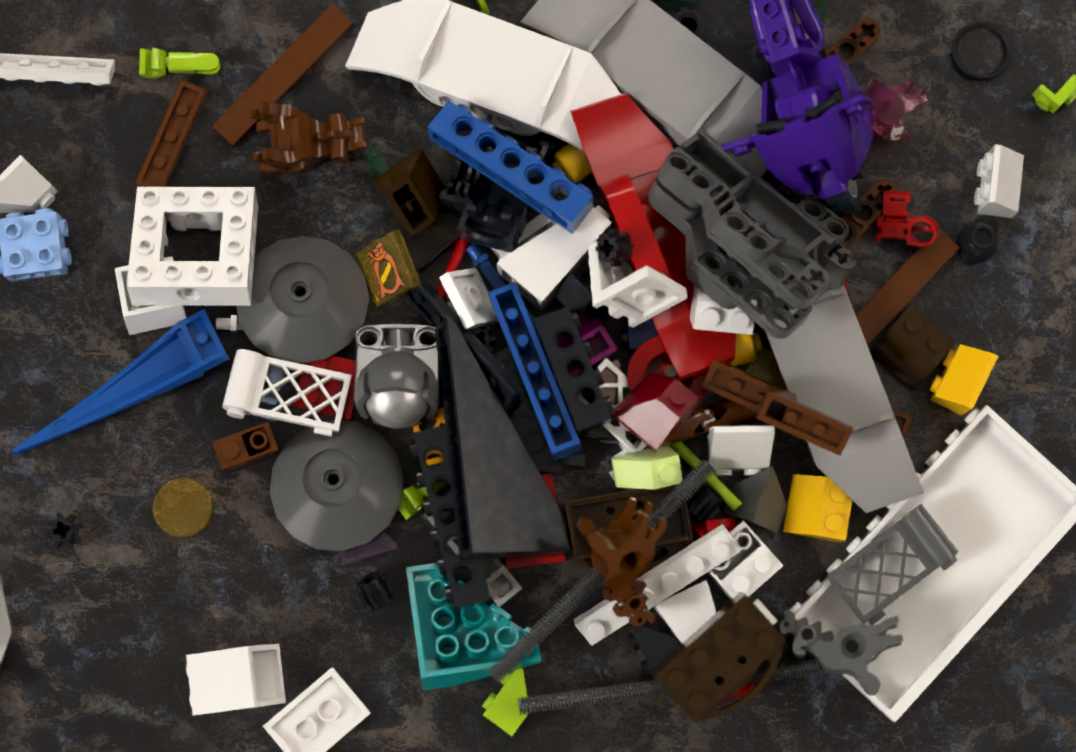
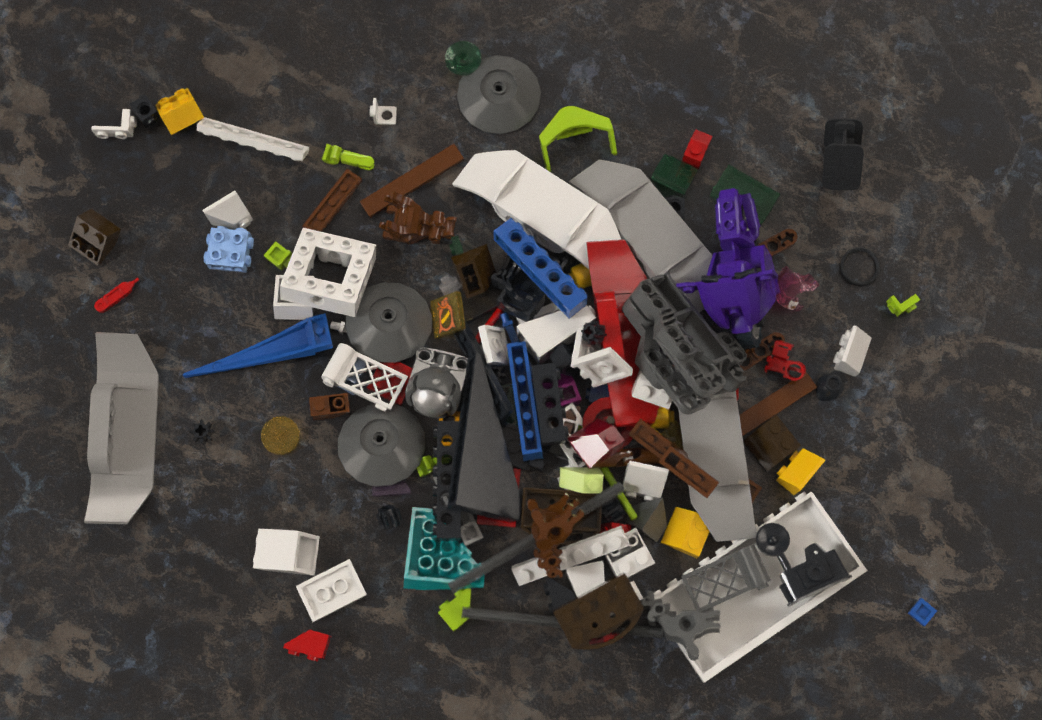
camera: 15 degrees right, 5 degrees down
(111, 238) = (278, 256): none -> lime bracket
(379, 222) = (449, 285): none -> clear gear
(1012, 535) = (807, 578): none -> black piece

